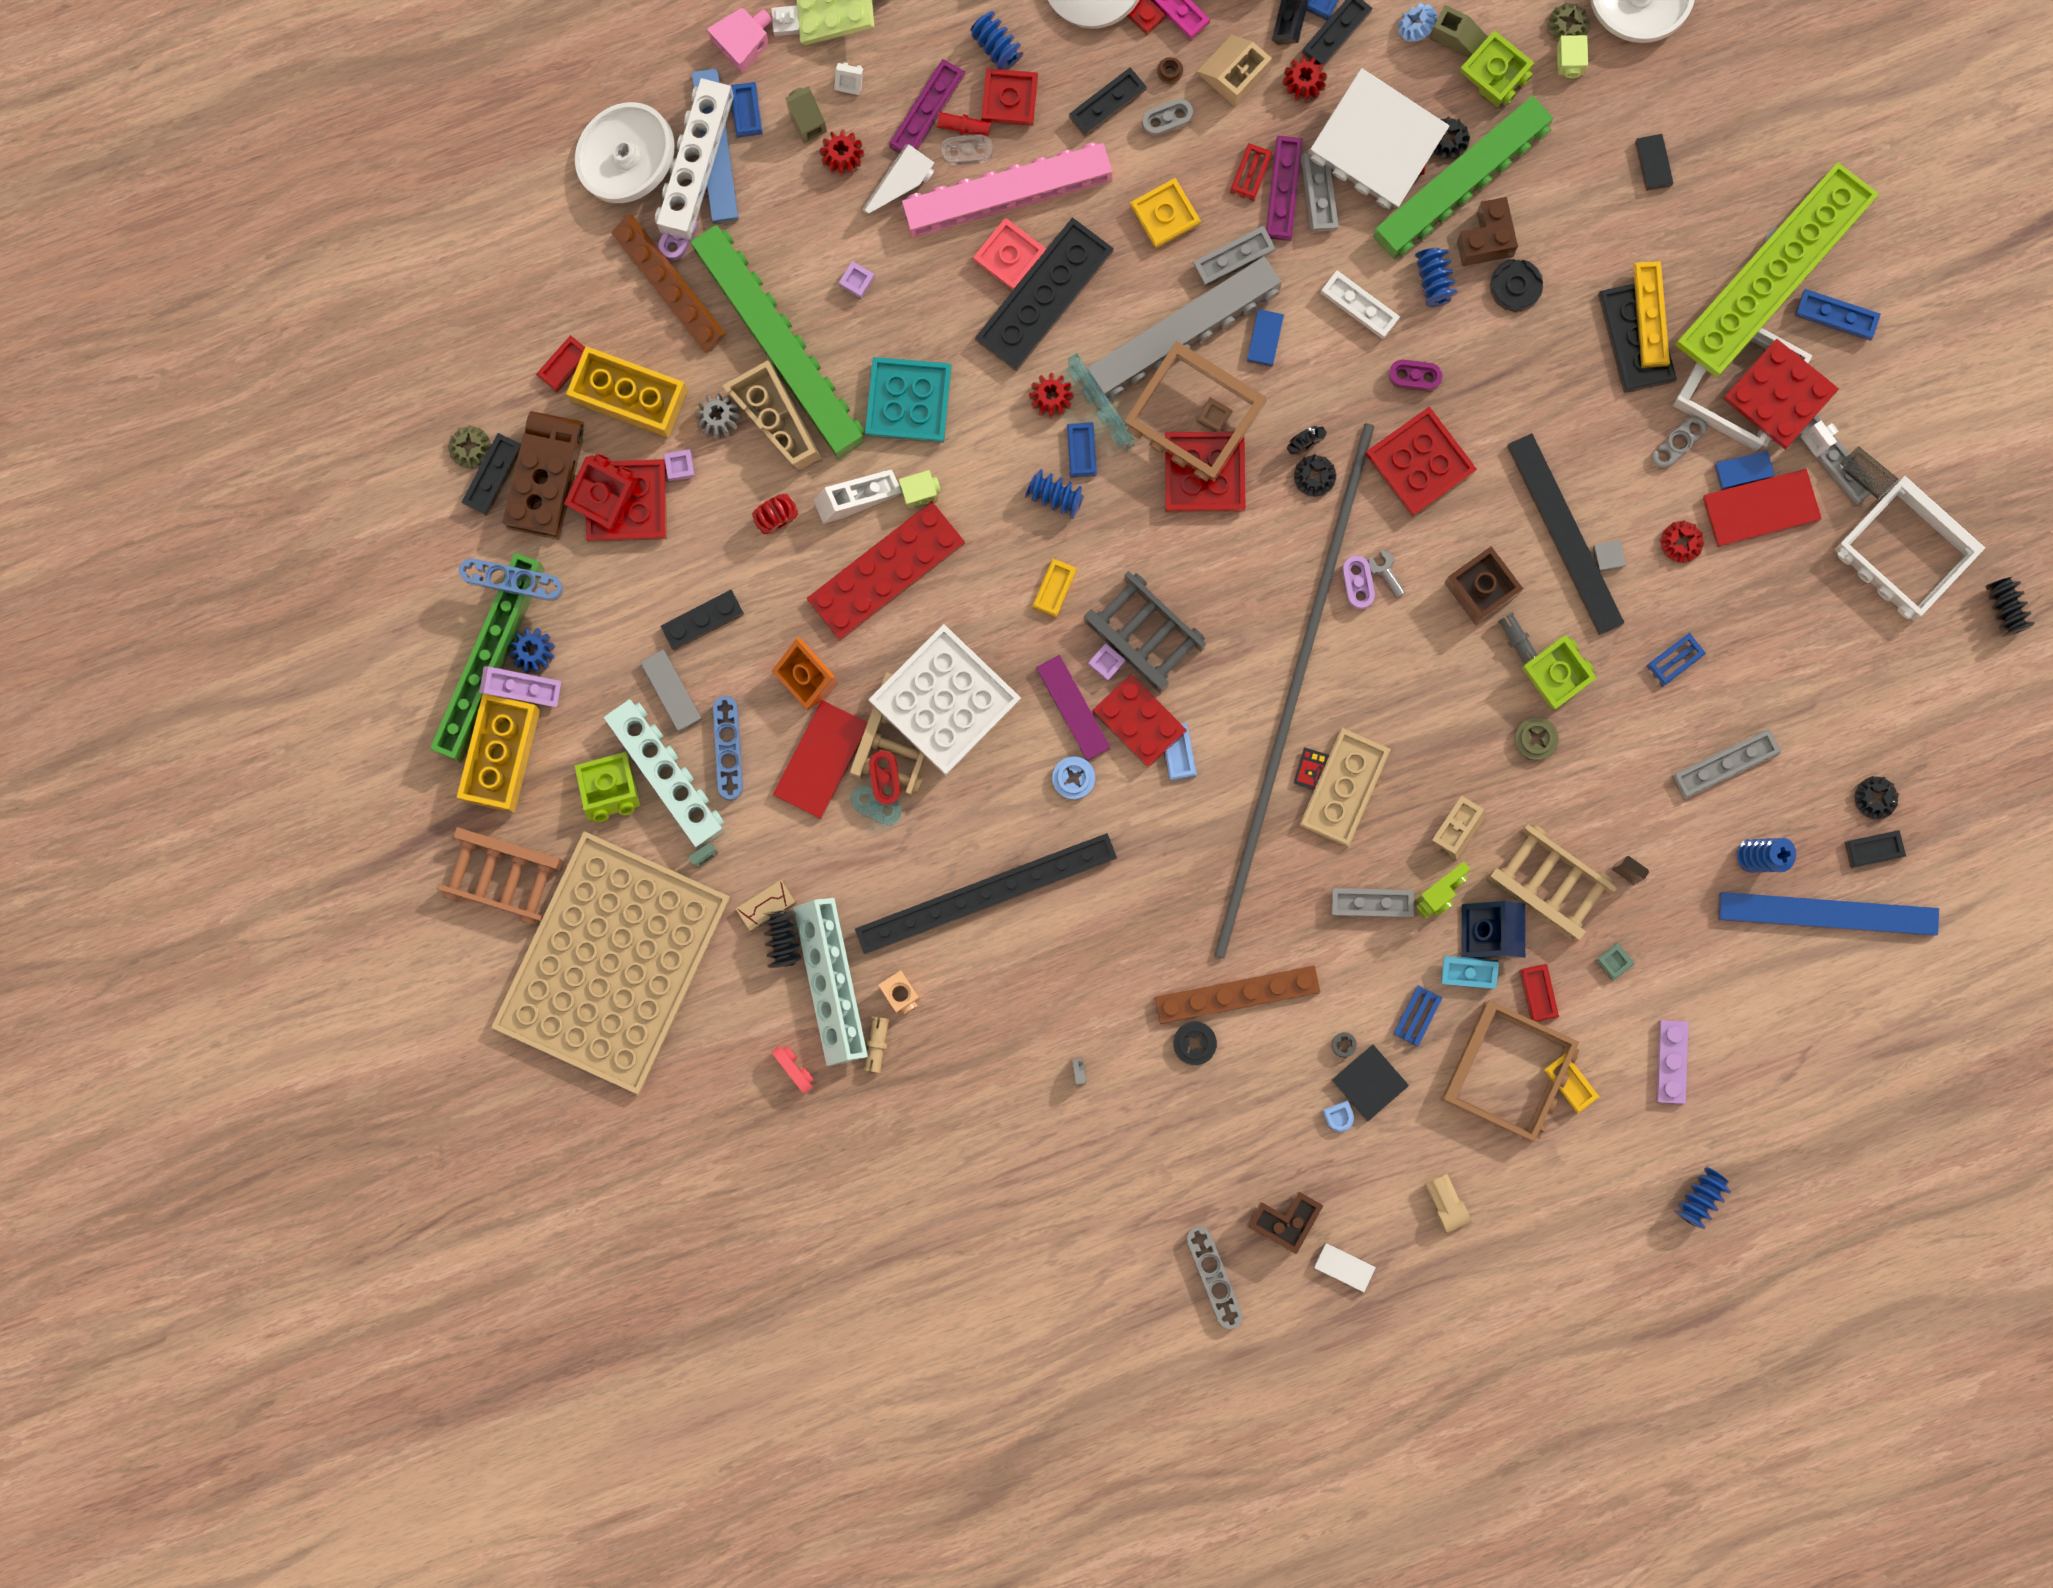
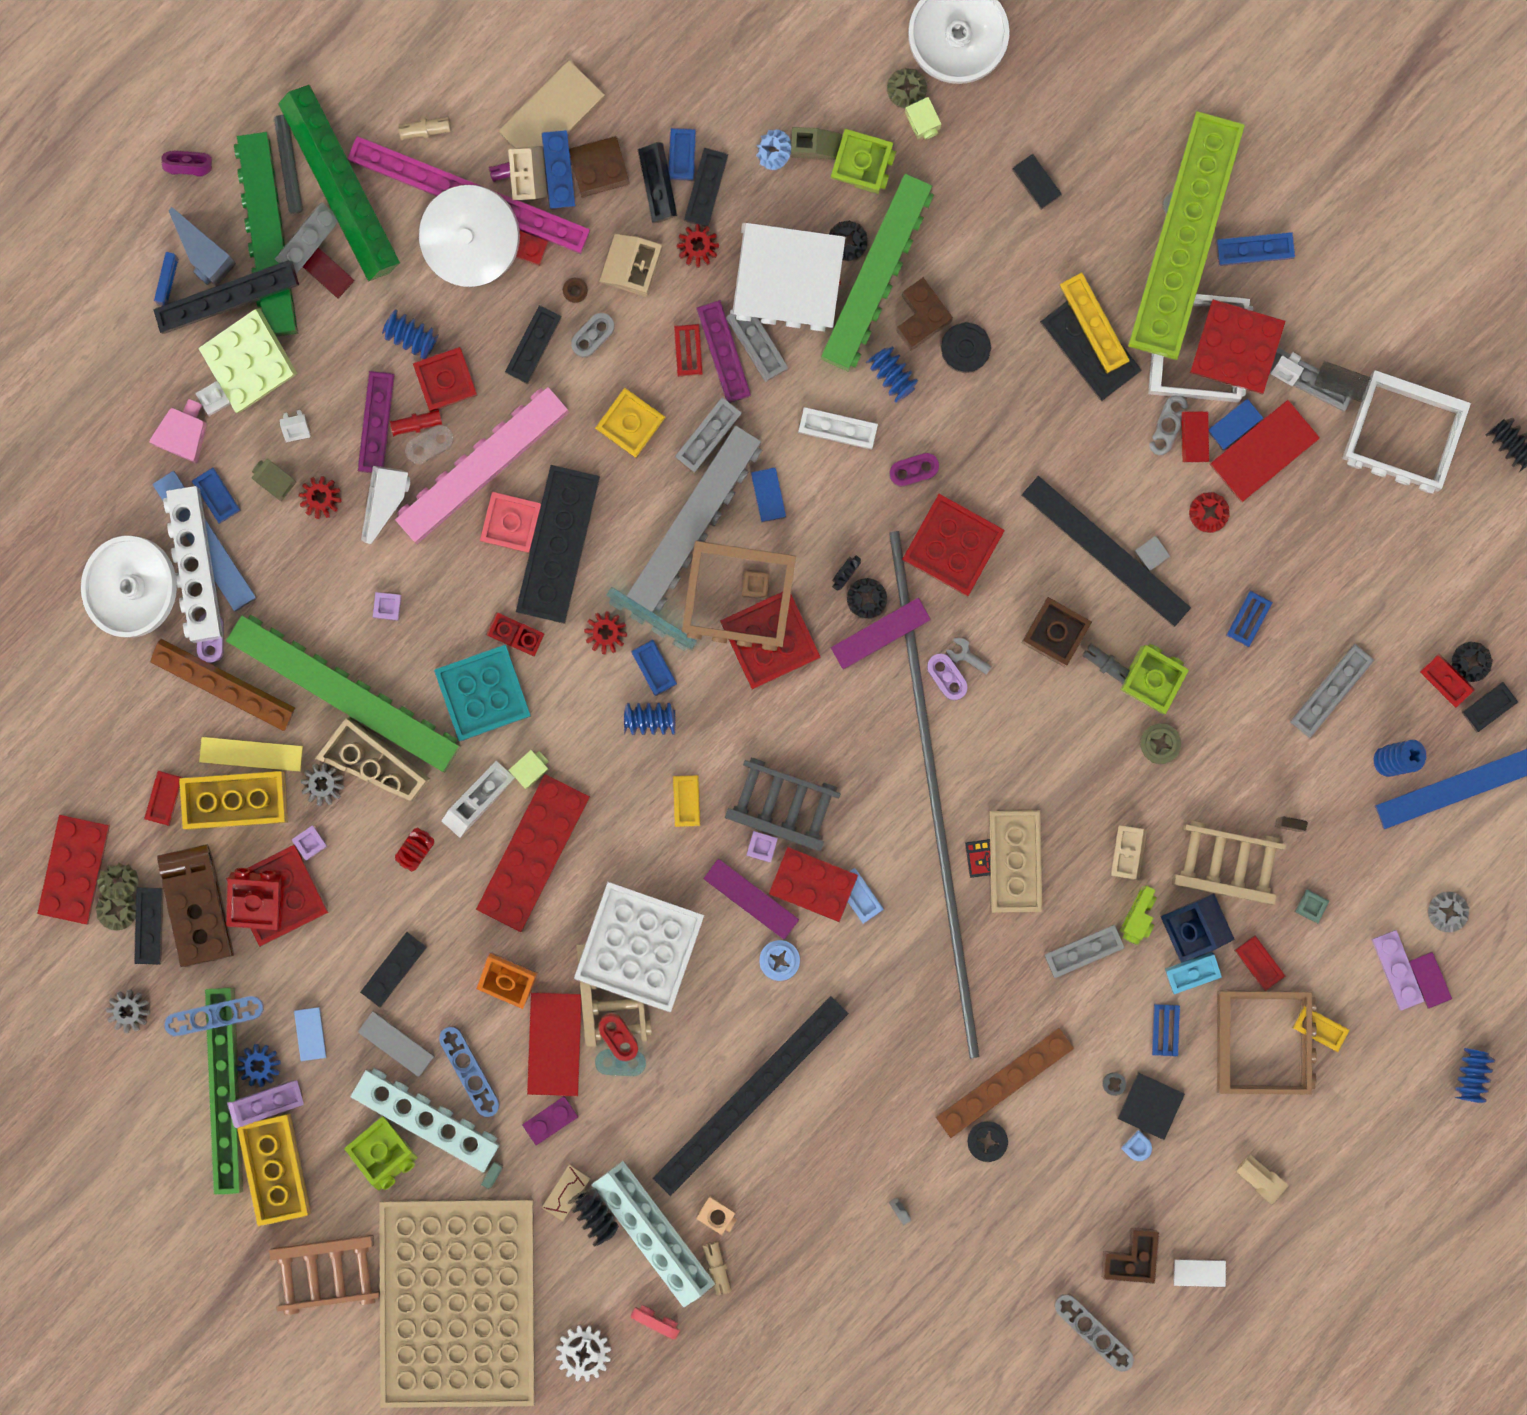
camera: 30 degrees left, 5 degrees up
(424, 547) = (128, 1021): none -> light grey gear
(448, 391) = (73, 869): none -> red plate
(481, 426) = (118, 890): none -> olive gear
(594, 644) = (310, 1034): none -> light blue tile
(664, 359) = (251, 754): none -> light yellow tile
(717, 1055) = (571, 1350): none -> white gear
(782, 830) = (550, 1120): none -> magenta plate
(965, 360) = (515, 634): none -> red slope
(1313, 513) = (880, 633): none -> magenta tile
(1700, 464) = (1195, 437): none -> red tile
(1700, 1086) = (1430, 980): none -> magenta tile
(1734, 1028) = (1438, 918): none -> light grey gear
(1845, 803) = (1447, 680): none -> red plate

